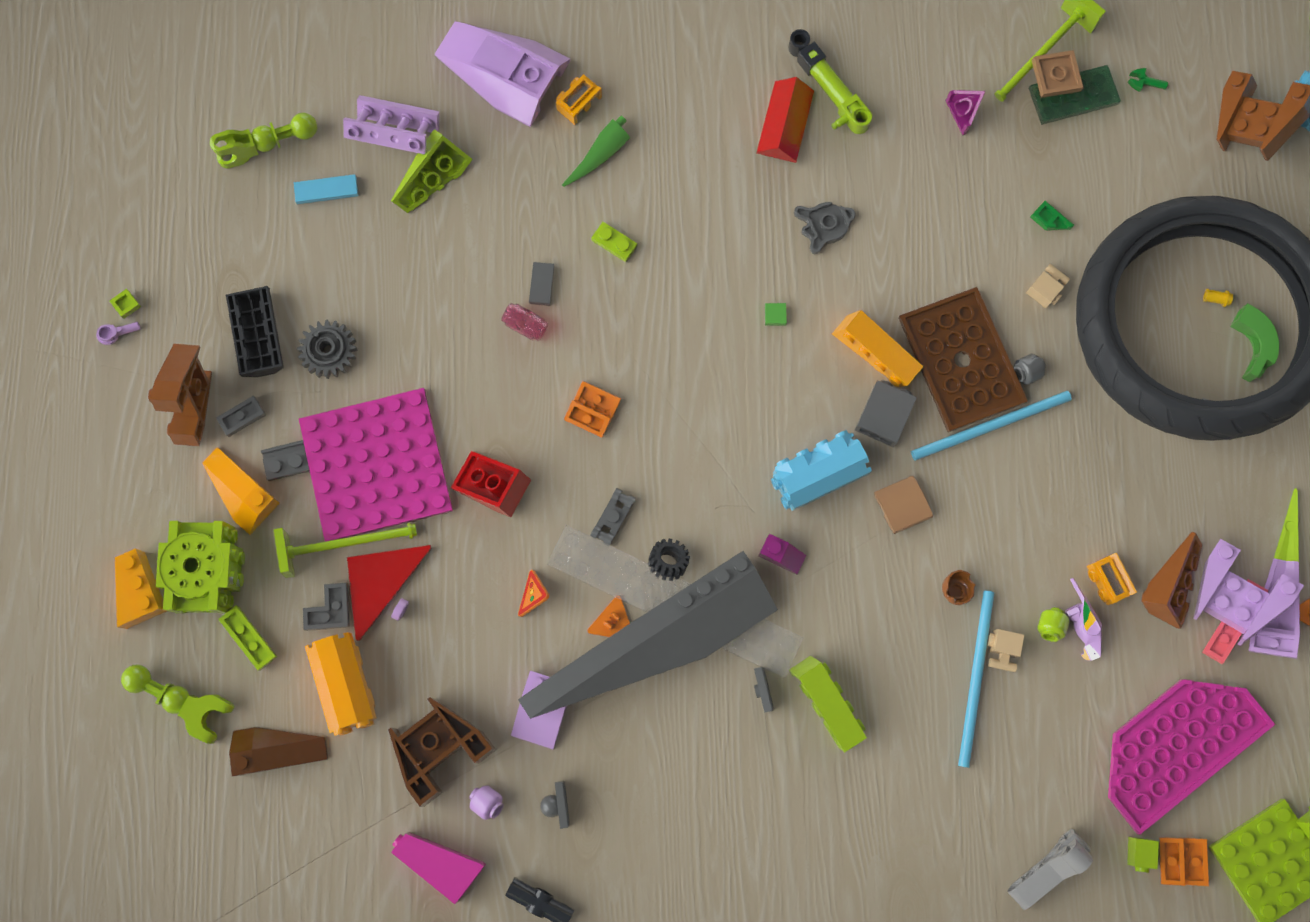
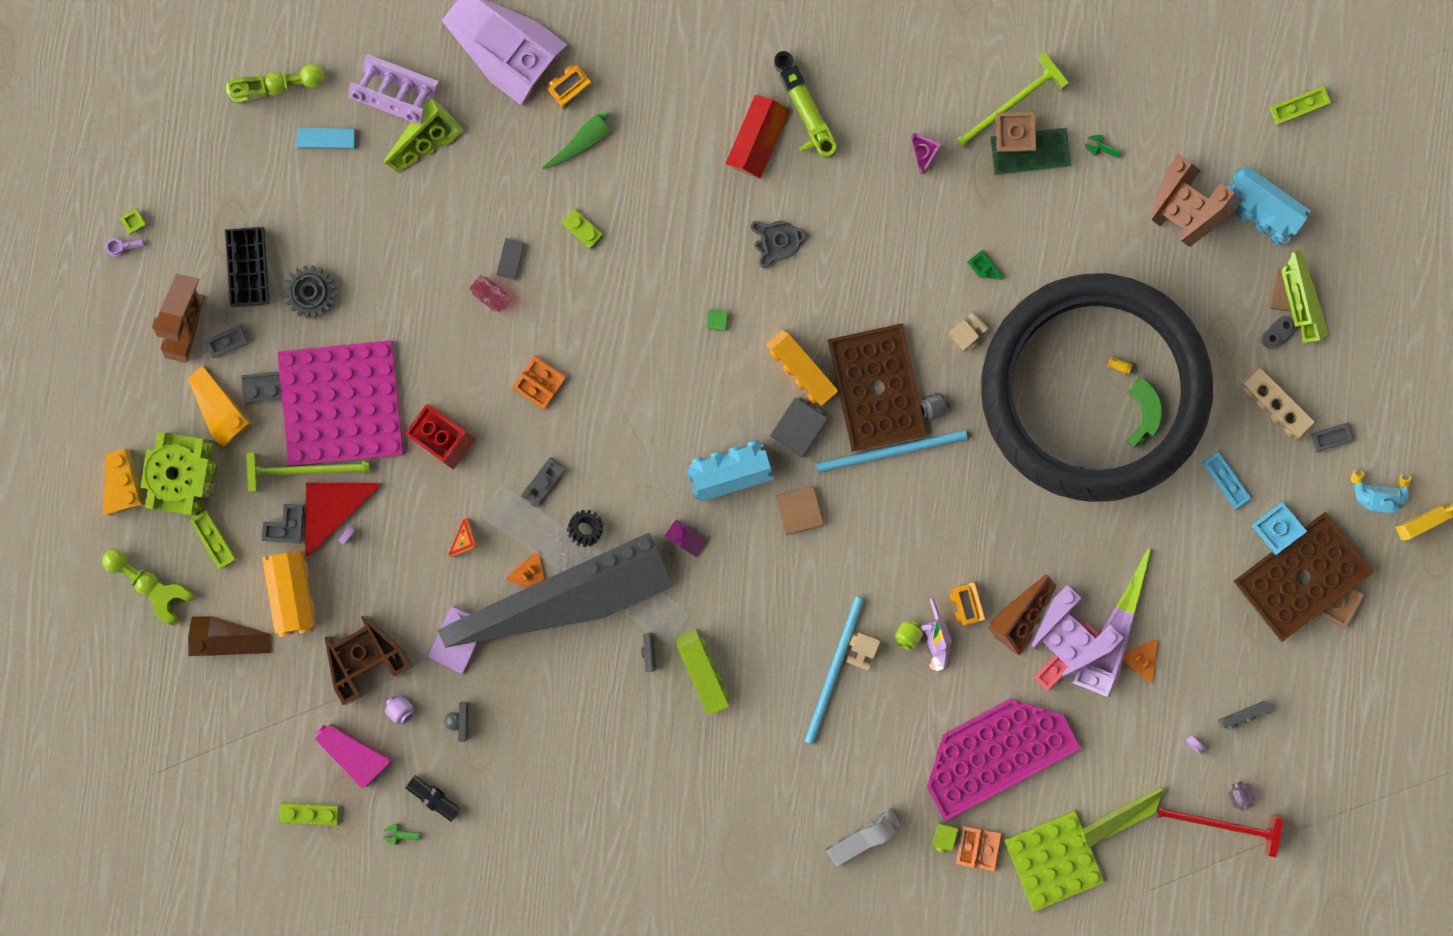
camera: 10 degrees right, 10 degrees up
(958, 587) = (833, 591): dark orange hair -> none

